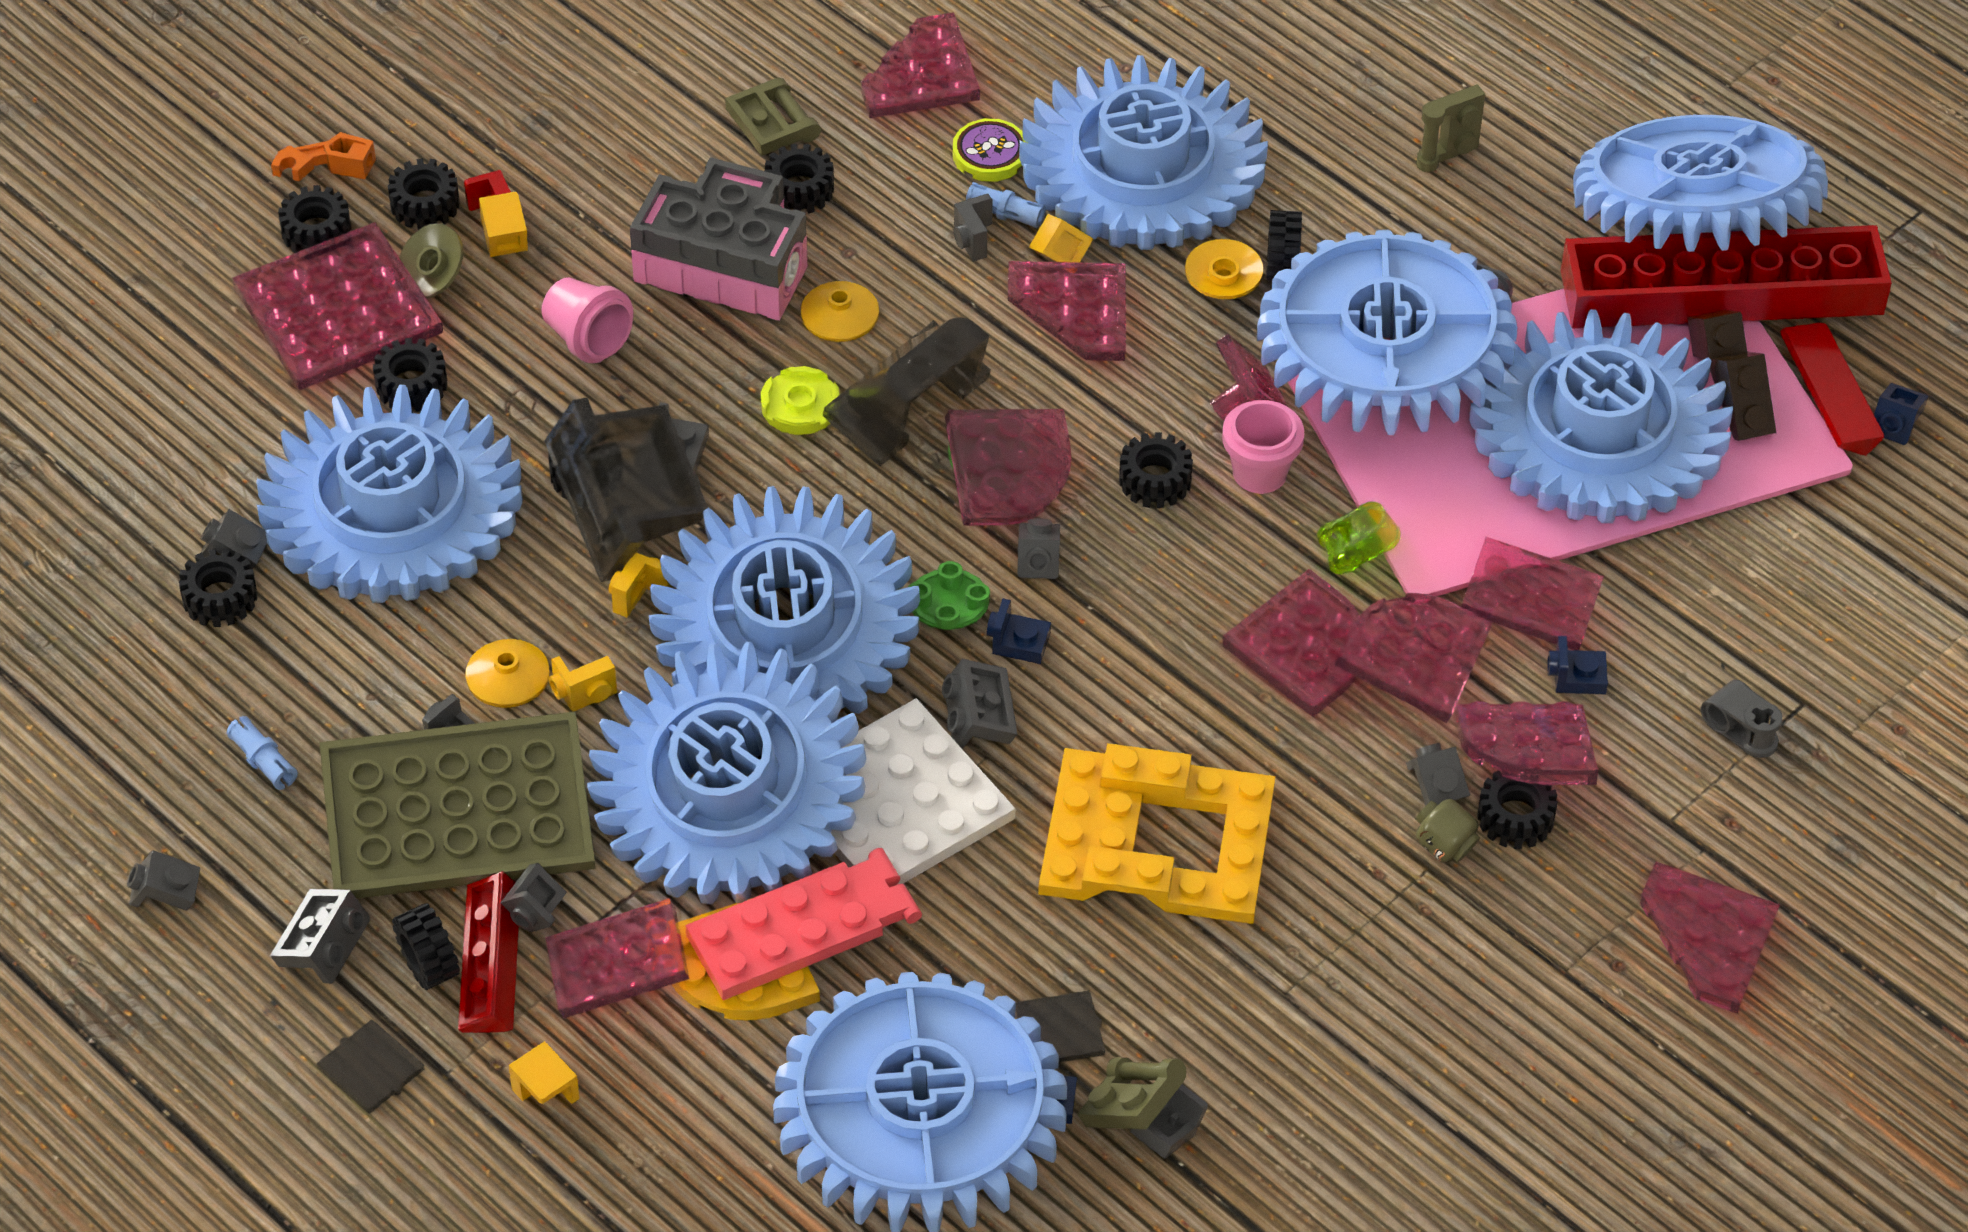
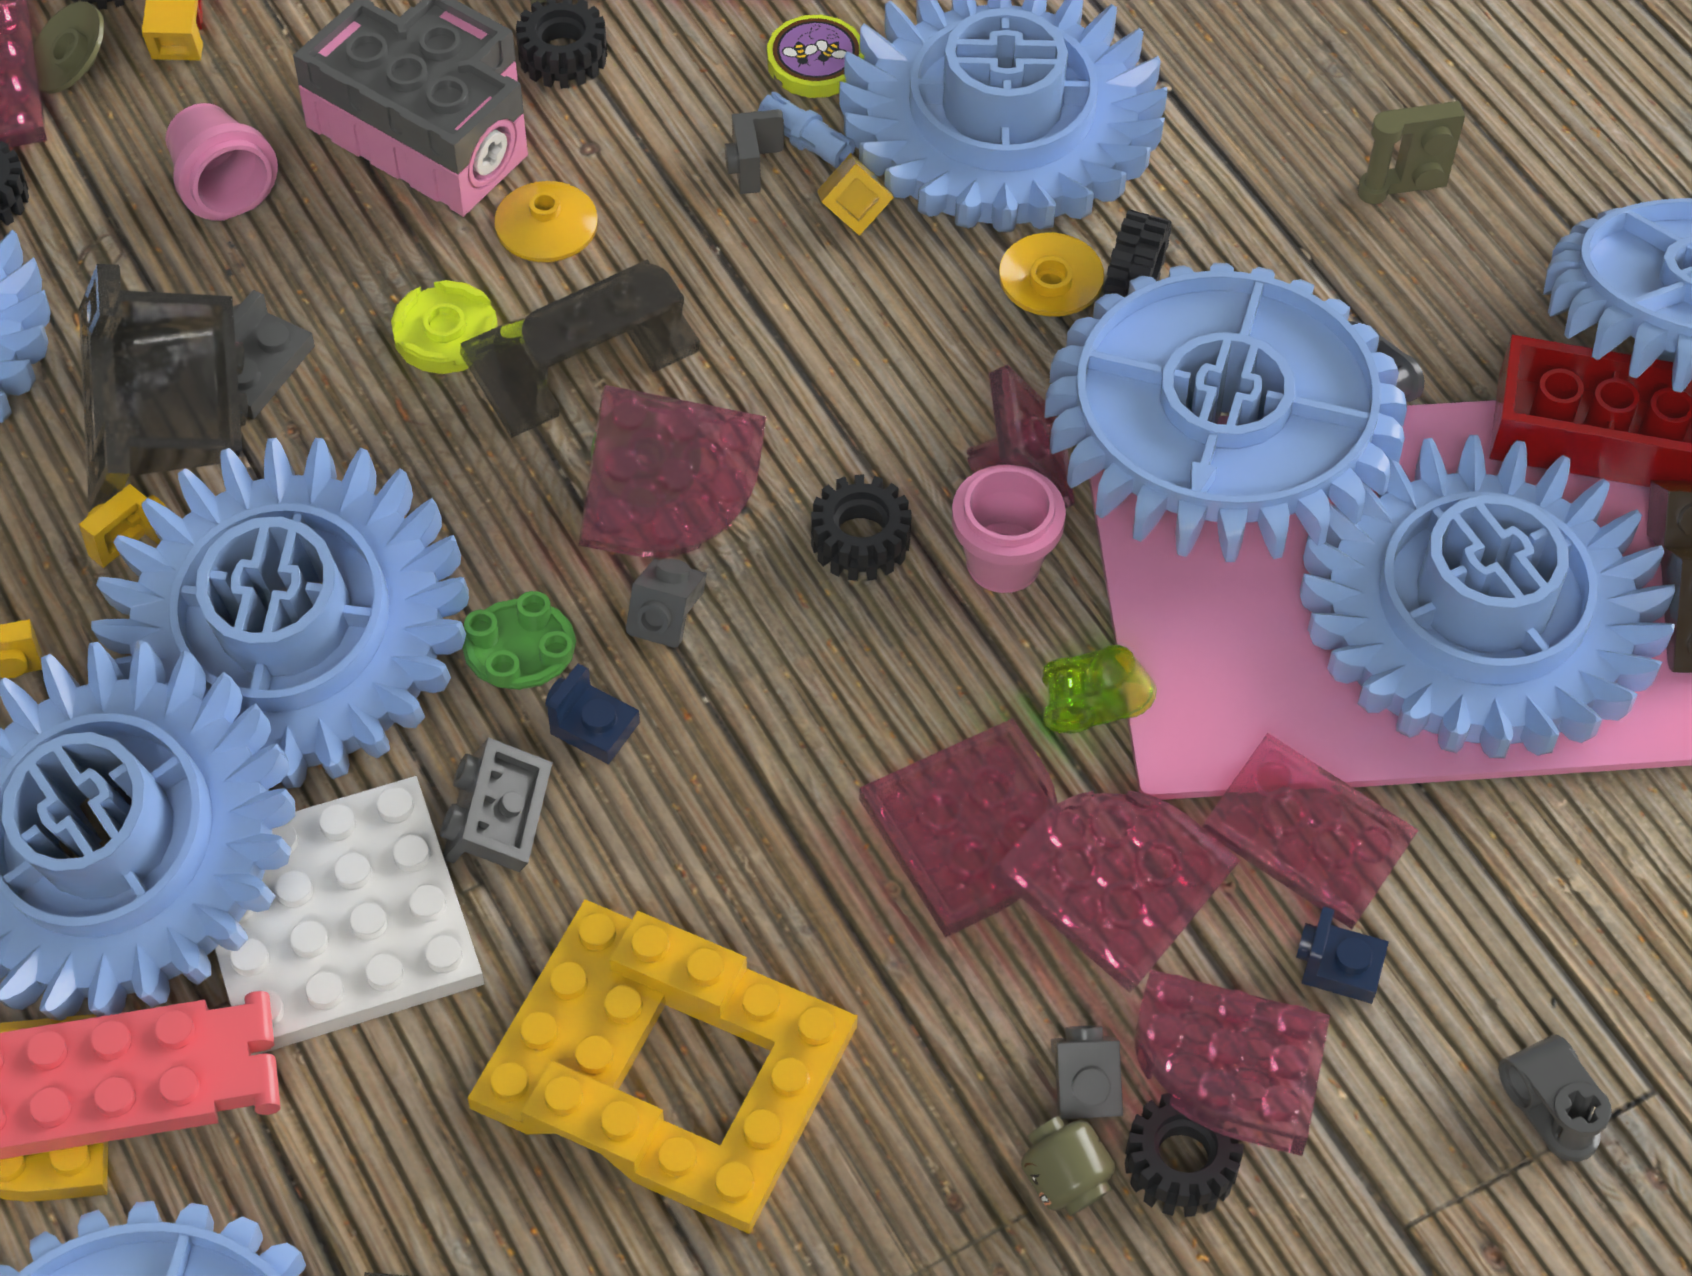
camera: 15 degrees right, 5 degrees up
(1075, 304) = (843, 278): clear pink plate -> none

